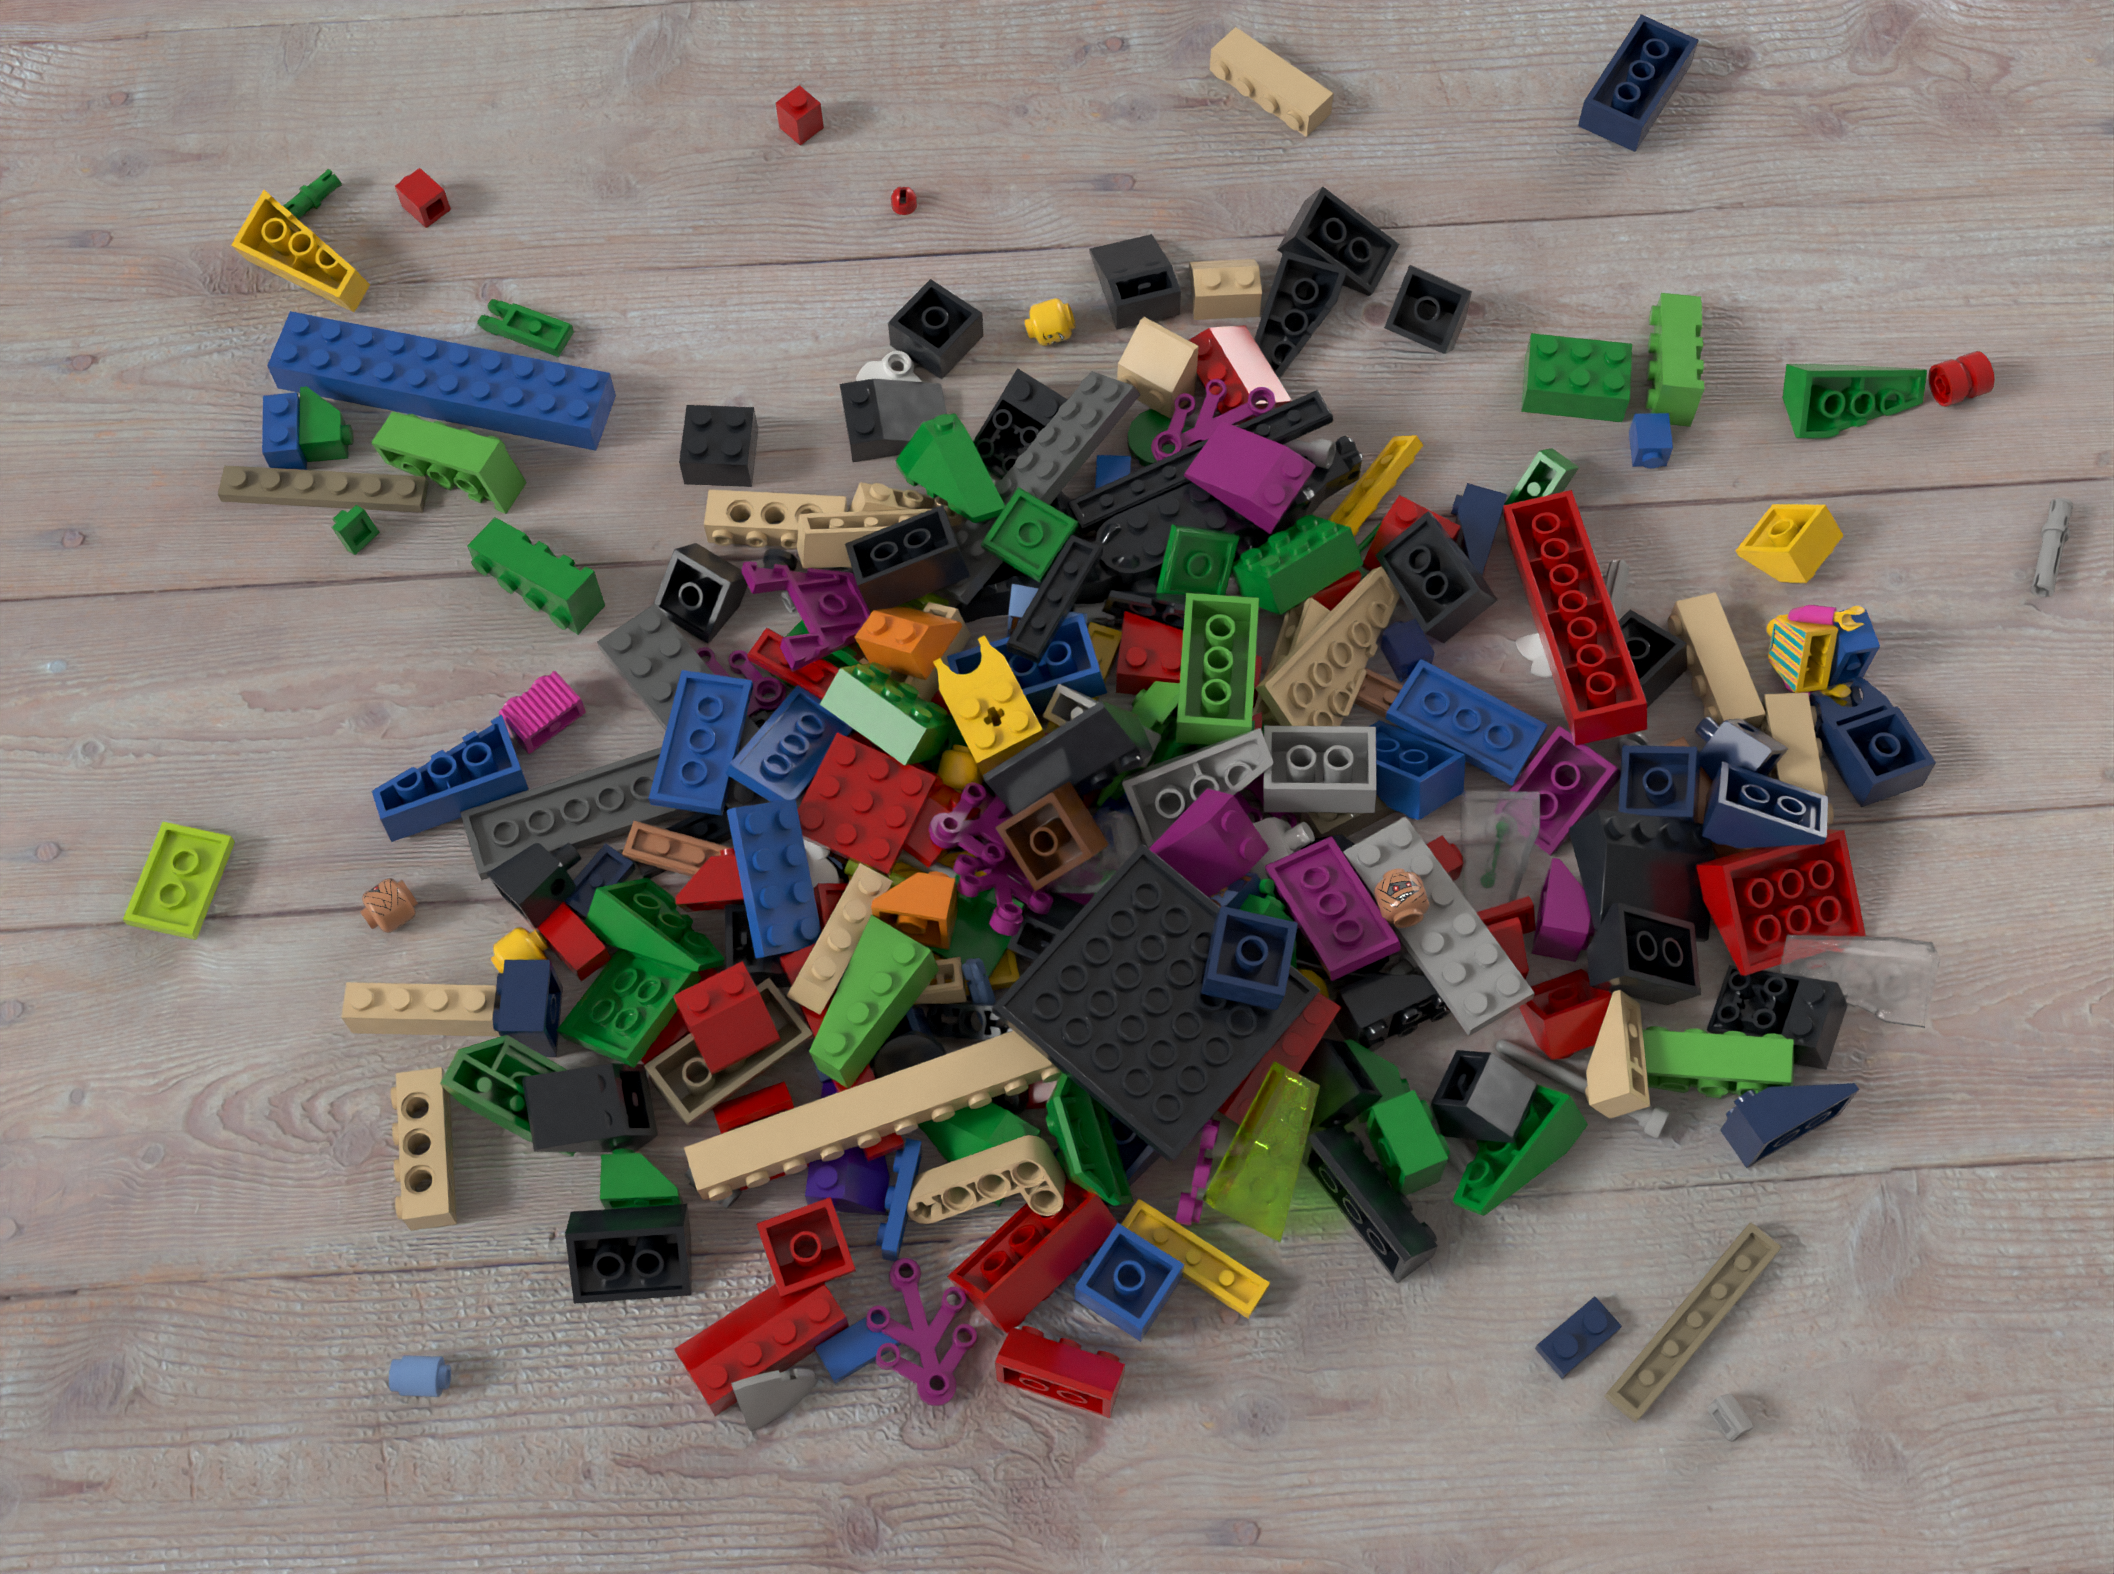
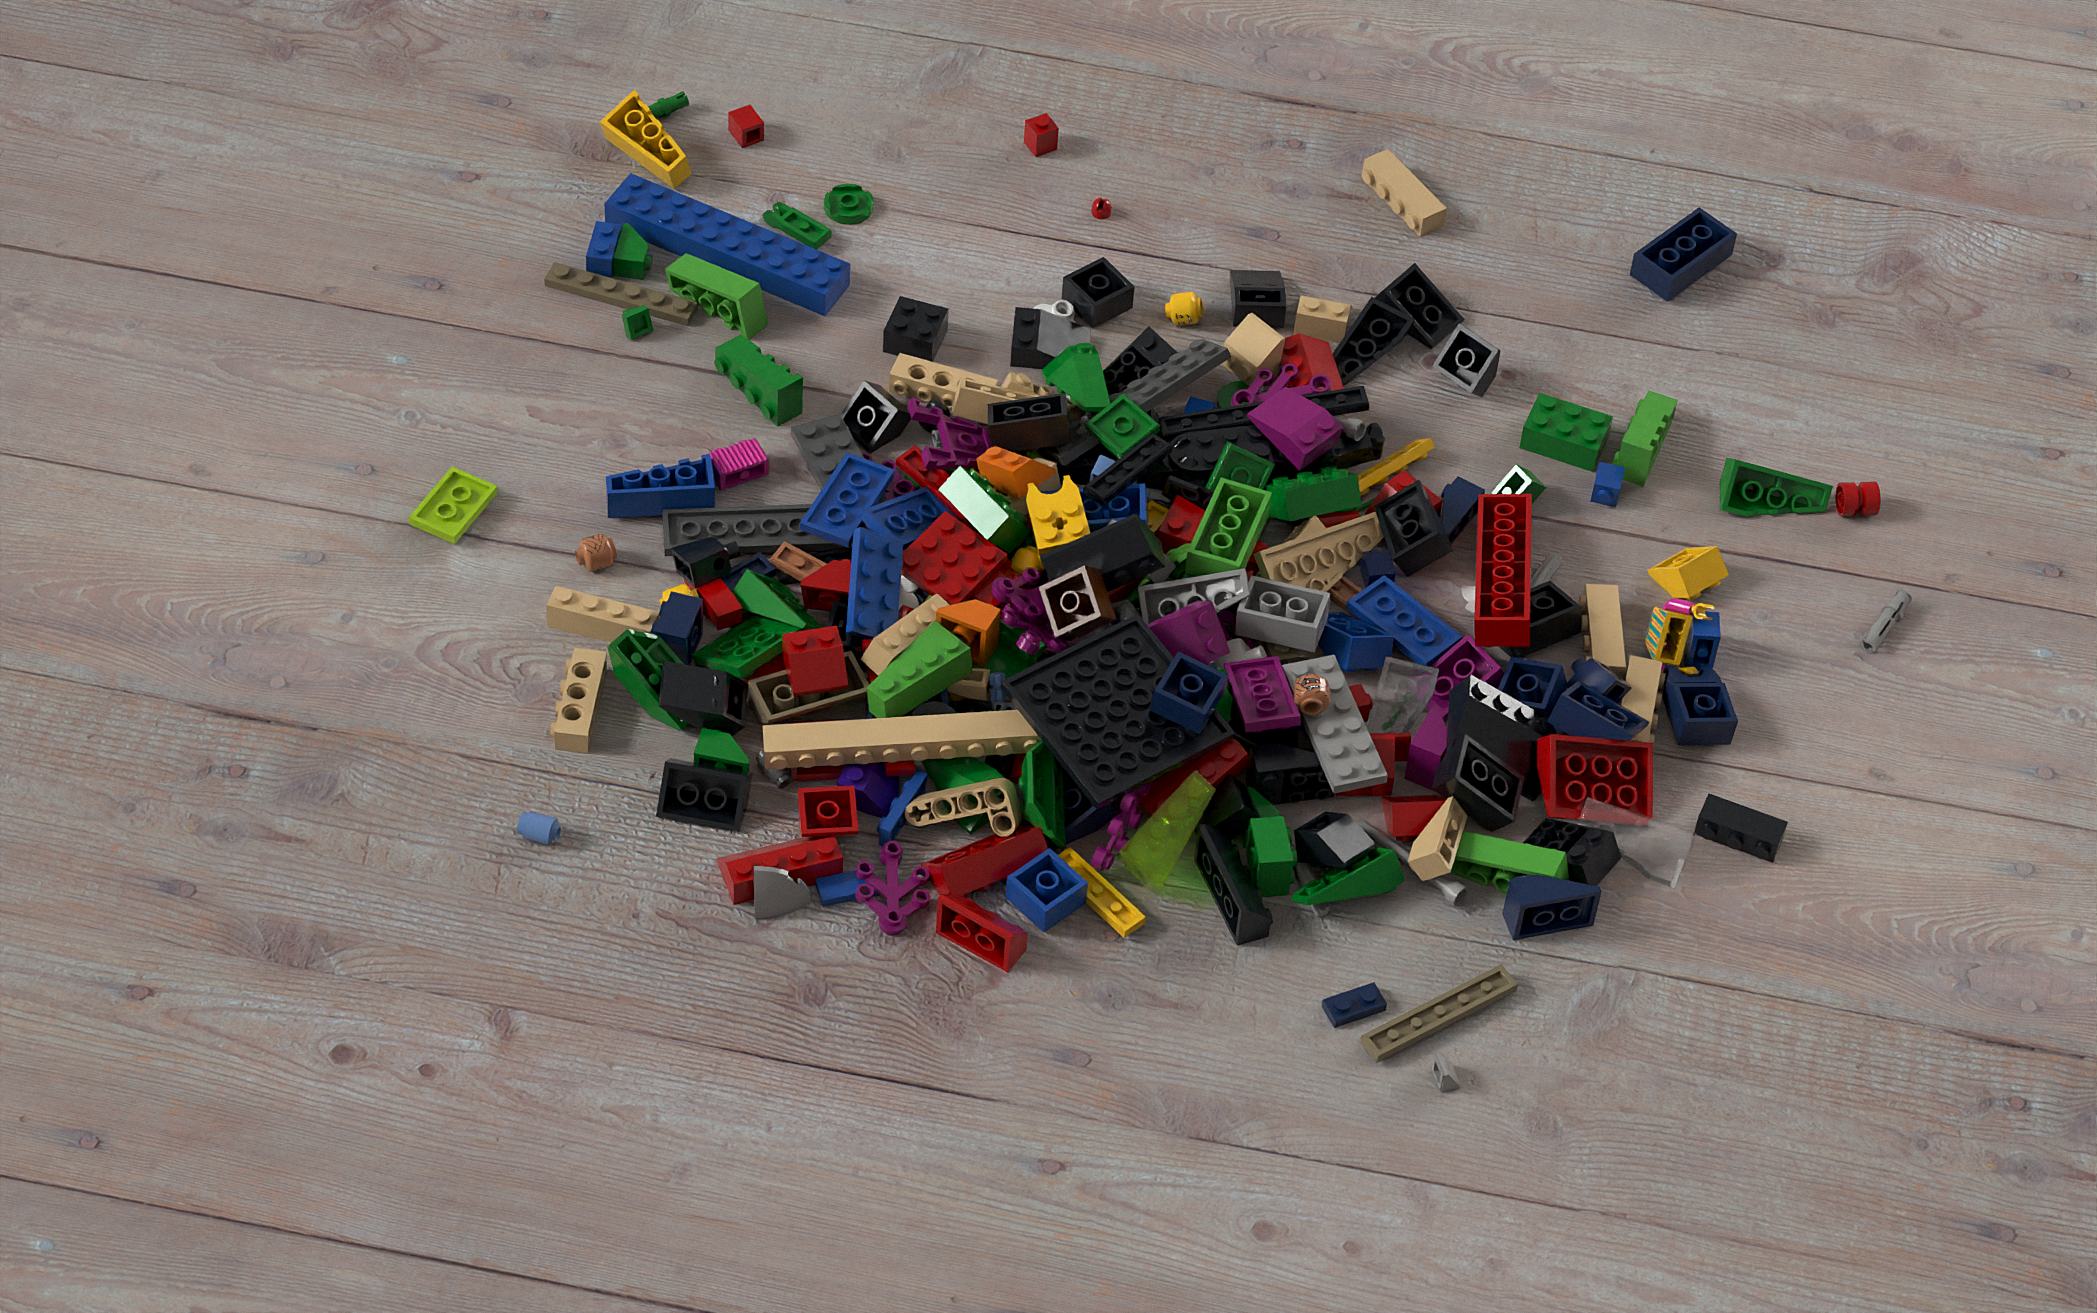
camera: 10 degrees right, 15 degrees down
(583, 276) = (848, 204): none -> green tile
(1981, 915) = (1740, 827): none -> black brick

